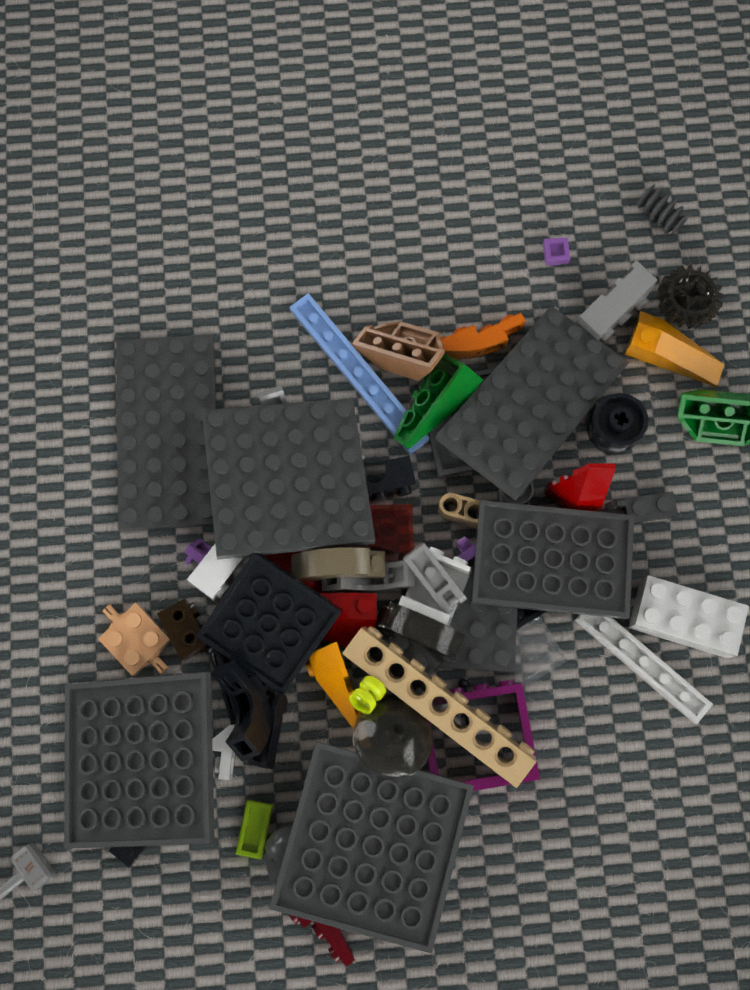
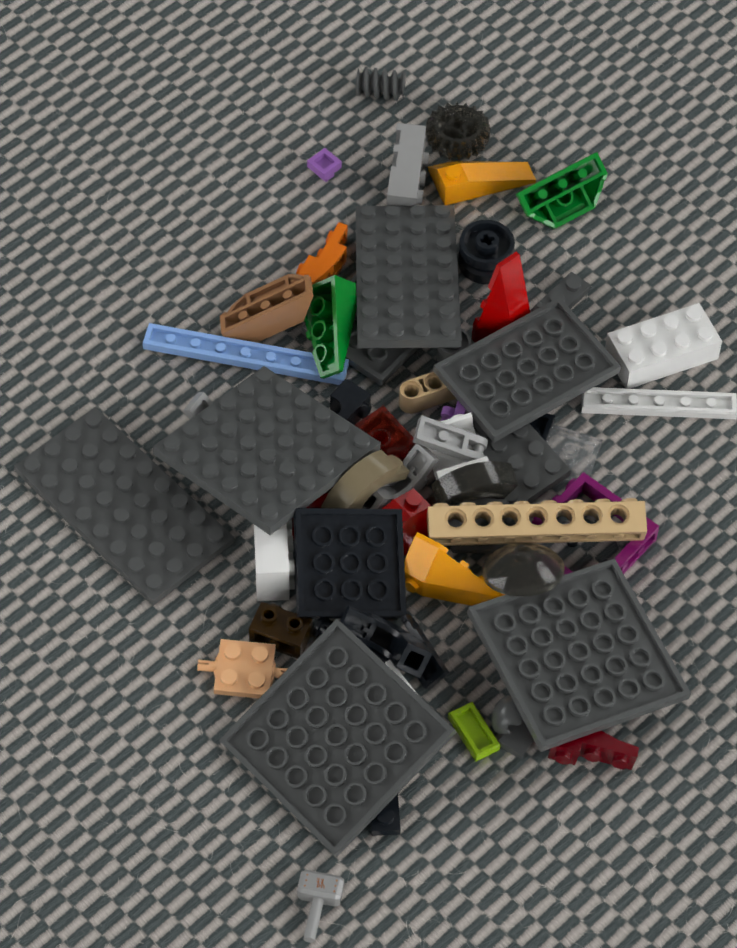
camera: 40 degrees left, 20 degrees down
(197, 551) = (241, 567): medium lavender tile -> none
(365, 697) = (476, 551): neon yellow wheel -> none

